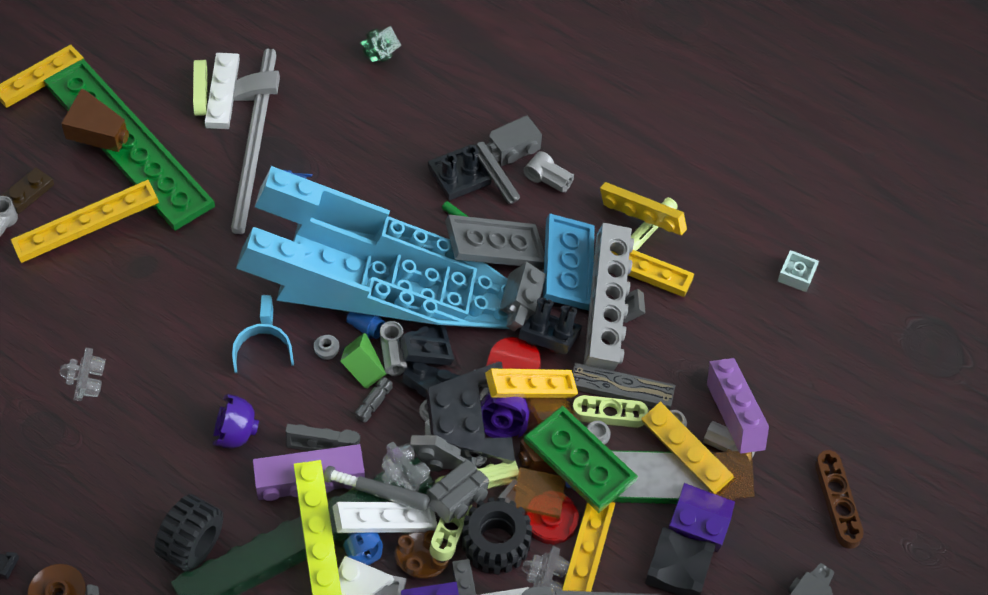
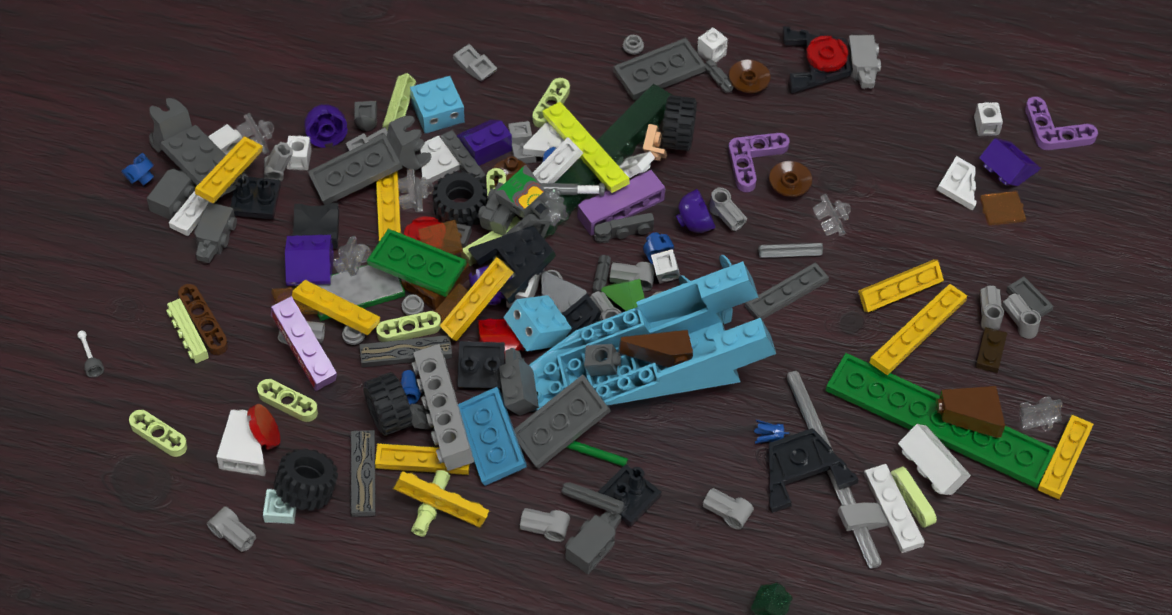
camera: 160 degrees right, 0 degrees up
(31, 110) = (1041, 414): none -> clear hips
(57, 276) = (900, 285): none -> yellow plate
(99, 424) = (792, 172): none -> reddish brown dish
(124, 493) = (749, 151): none -> medium lavender beam
(154, 357) = (790, 250): none -> axle
(161, 103) = (933, 460): none -> white brick
(187, 315) = (787, 291): none -> dark grey tile
(195, 422) = (726, 209): none -> light grey piece
(235, 519) = (653, 140): none -> light nougat bracket
(274, 502) = (637, 164): none -> white wing
(282, 147) = (800, 458): none -> black wing
(300, 402) = (657, 243): none -> blue piece
(303, 369) = (665, 266): none -> white brick
(337, 379) = (625, 272): none -> light grey piece
(360, 261) = (658, 348): none -> reddish brown slope
(371, 128) = (732, 510): none -> light grey piece
(432, 465) = (523, 194): none -> torso
(435, 278) = (595, 354): none -> dark grey brick
(474, 343) = (537, 322): none -> medium azure piece
(634, 340) = (410, 386): none -> blue cone
(647, 501) = (351, 256): none -> clear hips
(666, 310) = (387, 403): none -> black tyre
(706, 278) = (363, 473): none -> dark grey tile
(761, 254) = (305, 479): none -> black tyre
(766, 385) = (292, 409): none -> yellowish green beam
(799, 338) = (263, 426): none -> red tile
(824, 337) = (239, 447): none -> white slope
(855, 267) = (227, 525): none -> light grey piece
(860, 488) = (187, 331): none -> yellowish green piece
(907, 373) = (154, 424): none -> yellowish green beam
(973, 481) = (92, 366): none -> dark grey hinge

